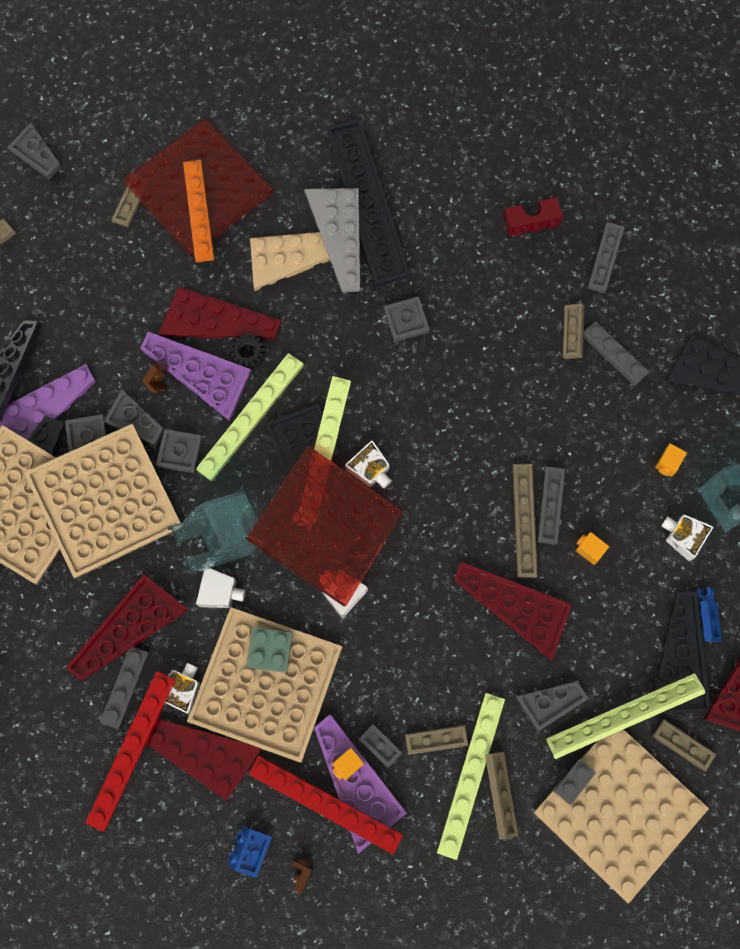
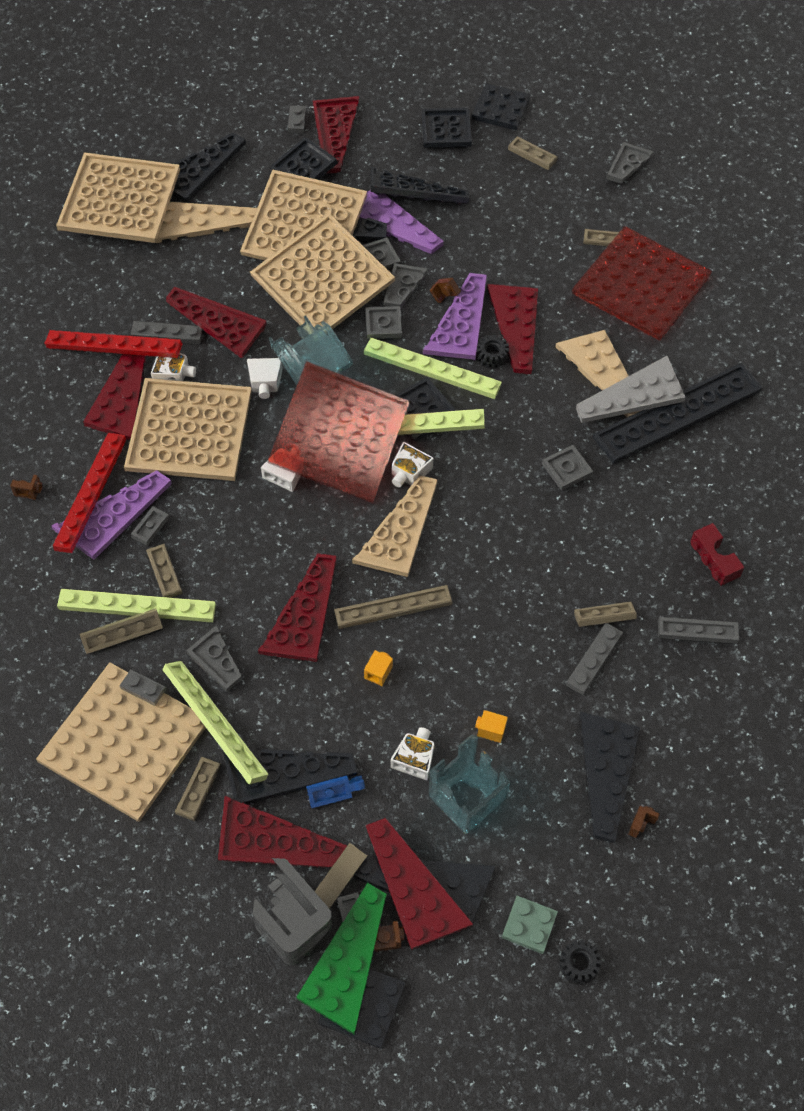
camera: 75 degrees right, 15 degrees down
(198, 211) = (614, 283): orange plate -> none
(249, 851) = (42, 447): blue bracket -> none
(269, 650) = (218, 421): sand green plate -> none
(347, 765) = (127, 497): light orange brick -> none
(448, 497) = (398, 536): none -> tan wing
(551, 505) = (413, 625): dark grey plate -> none

